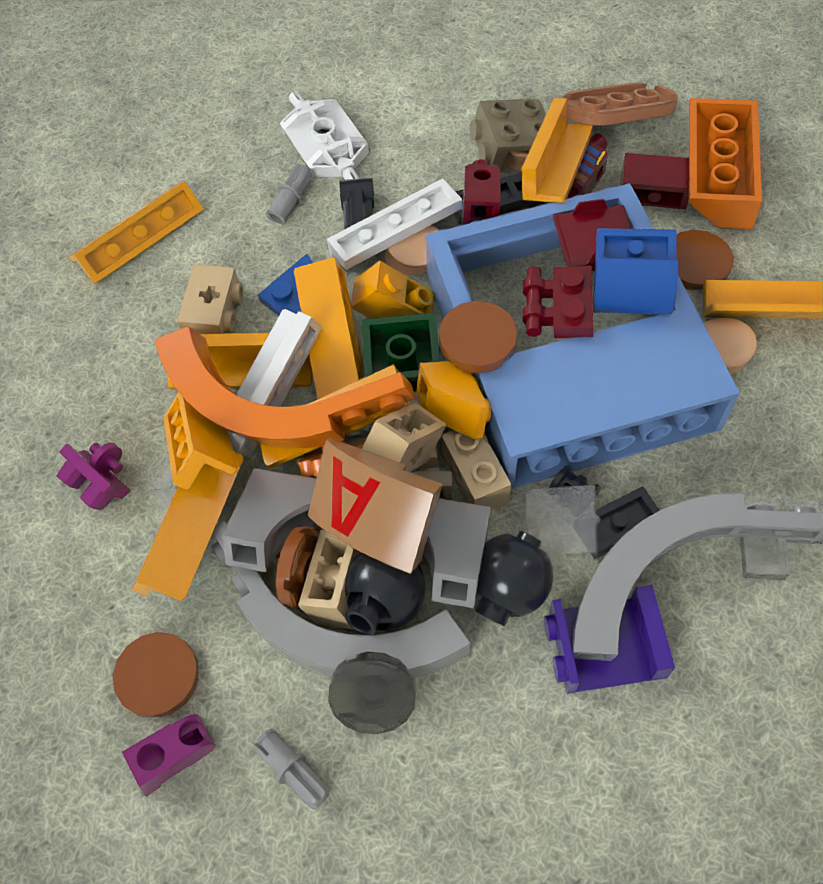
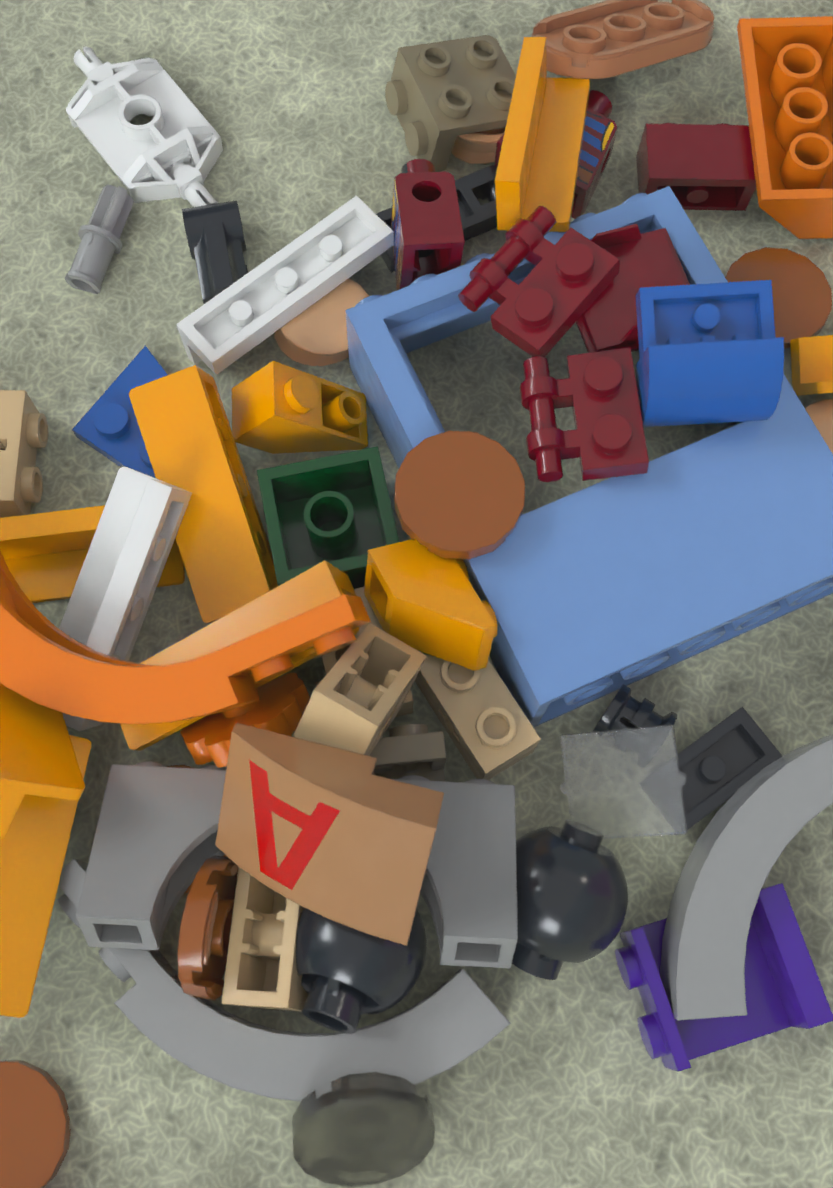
camera: 15 degrees left, 10 degrees up
(549, 233) = (552, 295): none -> dark red plate

